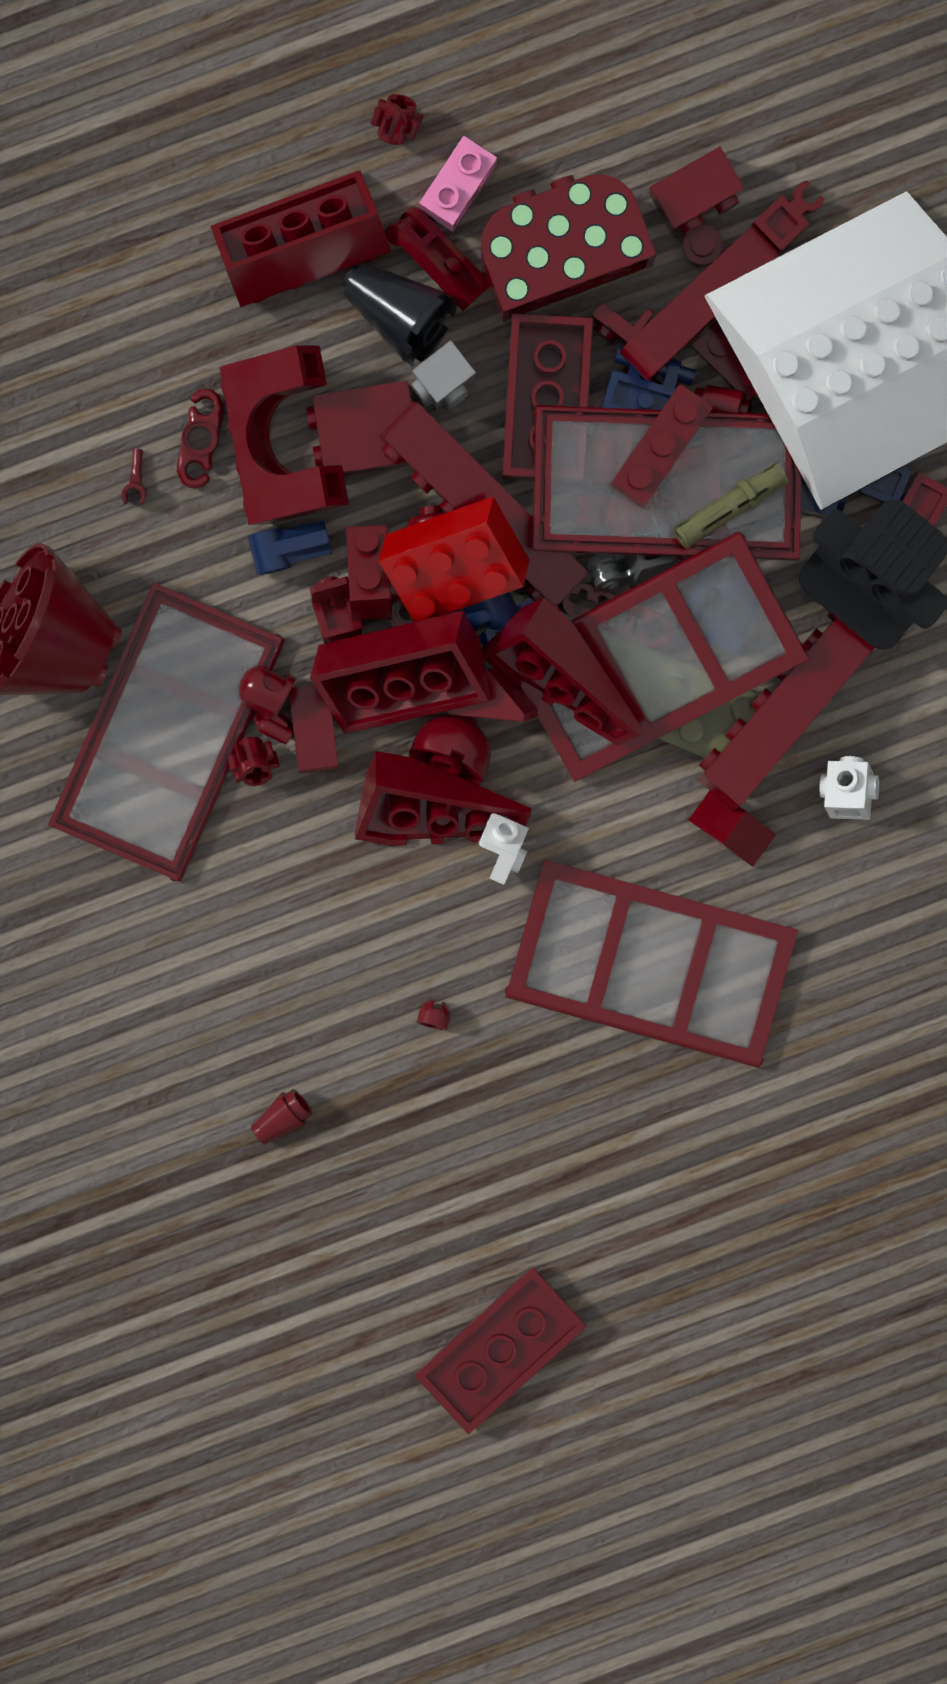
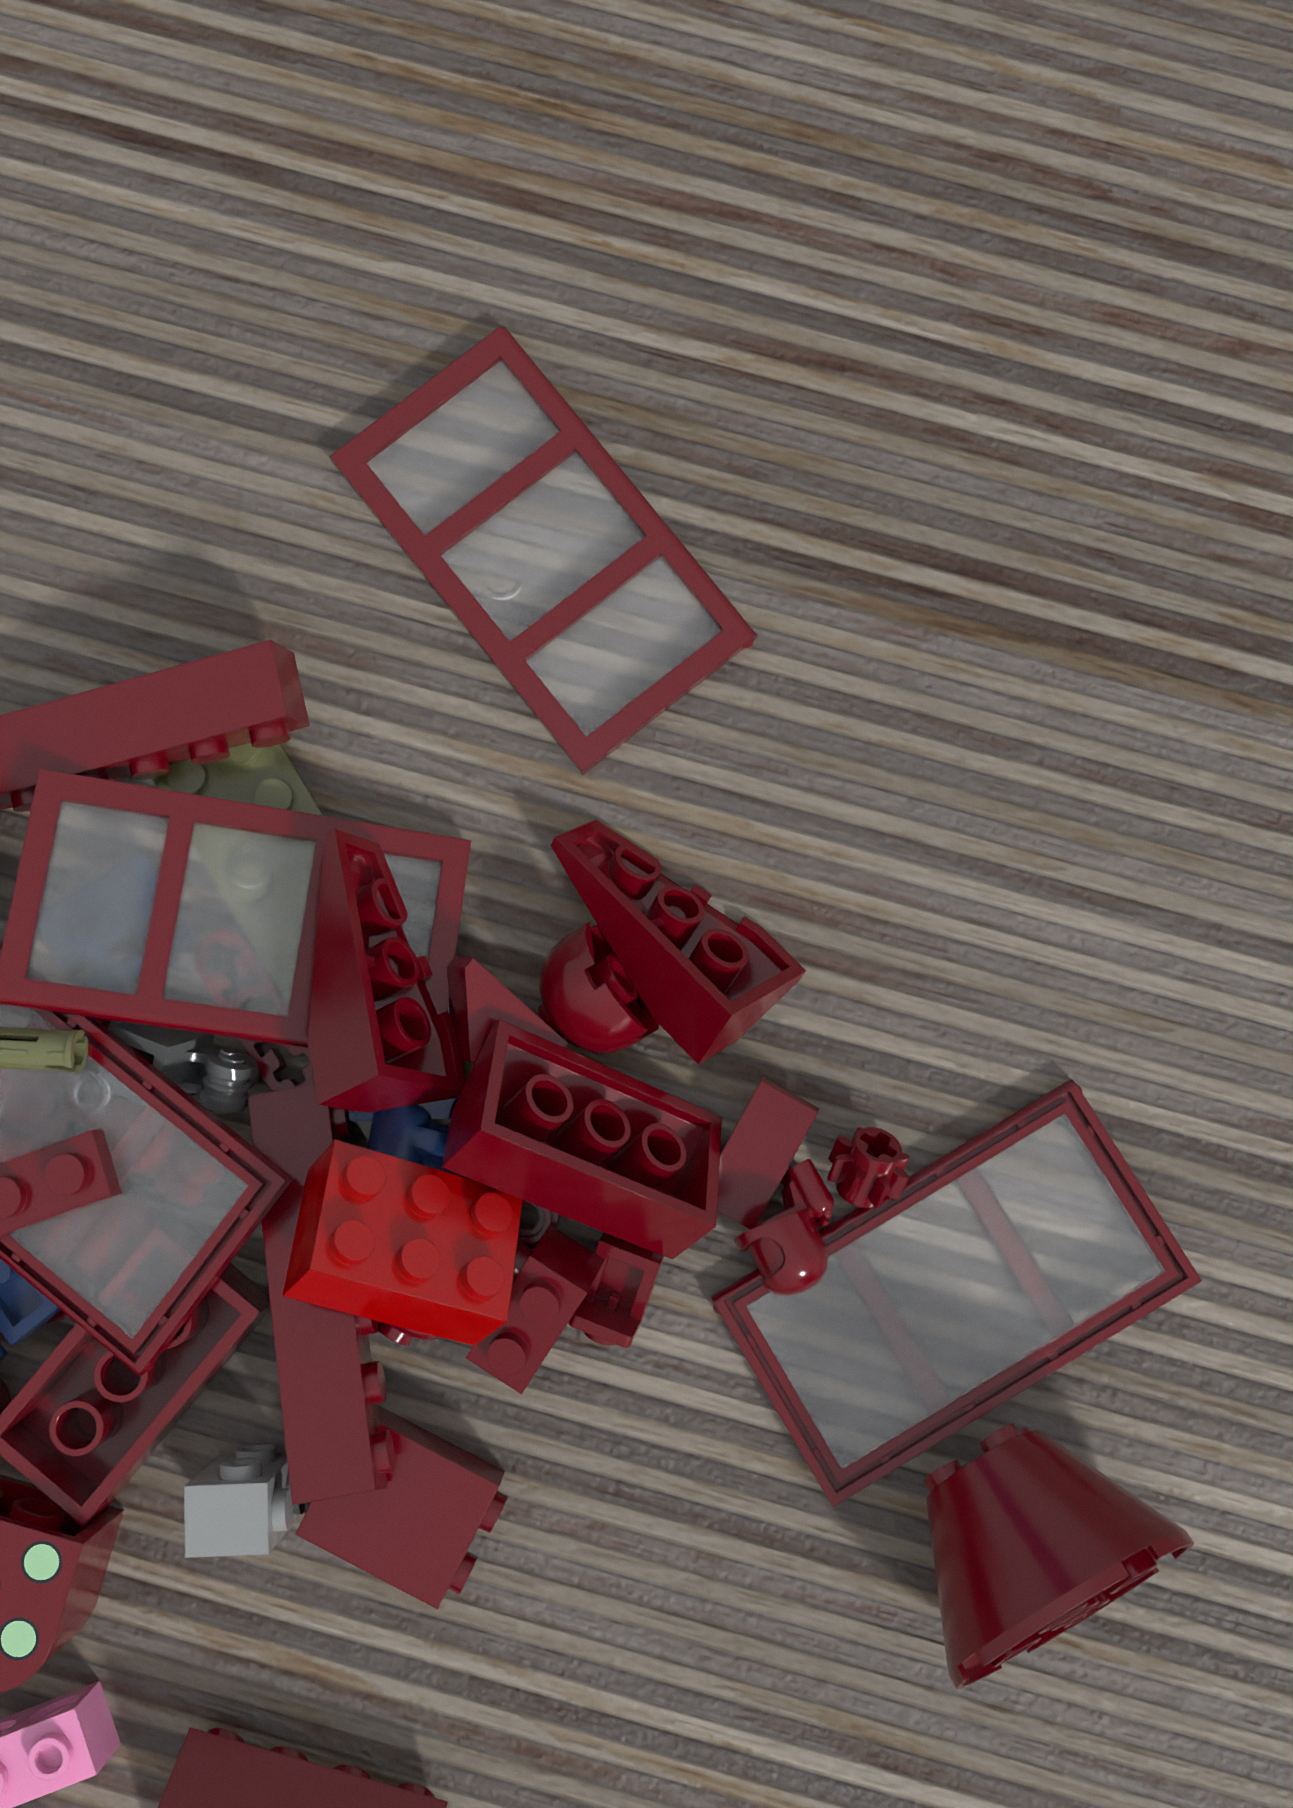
camera: 145 degrees left, 5 degrees down
(135, 477) = (757, 1660): dark red hand -> none
(204, 457) = (600, 1663): dark red piece -> none
(251, 395) = (510, 1671): dark red arch -> none
(279, 548) = (633, 1425): dark blue piece -> none
(282, 1116) = (1150, 684): dark red cone -> none
(400, 310) = (234, 1639): black cone -> none
(433, 1017) = (868, 671): dark red hinge -> none
(437, 256) = (136, 1669): dark red plate -> none
(500, 1350) = (1078, 209): dark red plate -> none
(505, 839) = (613, 822): white bracket -> none
(732, 829) = (313, 628): dark red slope -> none
(849, 788) = (134, 558): white brick -> none

